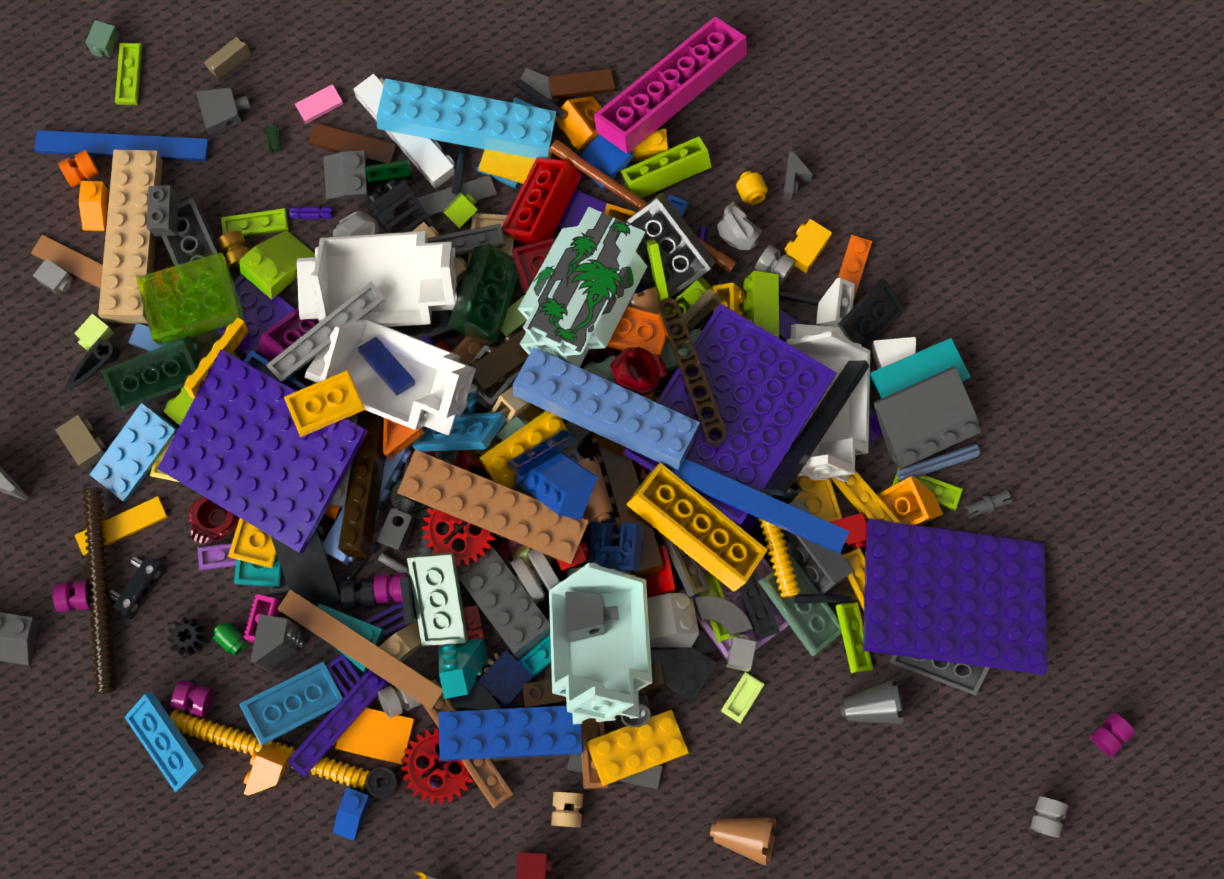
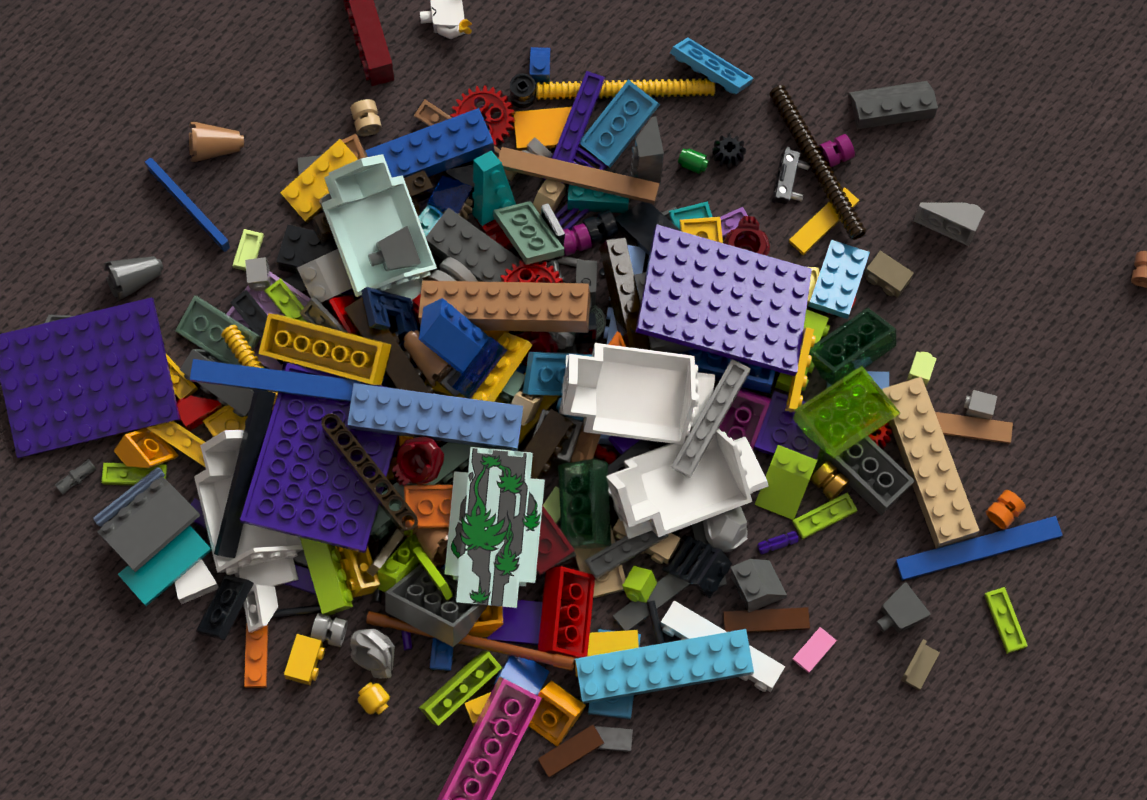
camera: 160 degrees right, 5 degrees down
(92, 363) = (909, 341): black piece -> none
(93, 205) = (976, 482): light orange slope -> none
(102, 39) = (1044, 642): sand green brick -> none
(162, 210) = (905, 480): dark grey brick -> none
(191, 698) = (703, 105): magenta wheel -> none
(262, 606) = (671, 180): dark pink brick -> none
(267, 769) = (619, 68): light orange slope -> none
(273, 137) = (841, 600): clear green pin -> none
(324, 403) = (681, 340): yellow tile -> none
(383, 172) = (719, 595): dark green slope -> none
(386, 366) = (645, 402): clear blue tile -> none
(541, 99) = (601, 716): black bar -> none
(724, 613) = (281, 299): flat silver tile -> none
(794, 771) = (187, 204): none -> blue tile
(795, 172) = (338, 729): dark grey slope -> none
(825, 598) = (199, 345): black bar -> none
(852, 633) = (171, 334): lime tile -> none

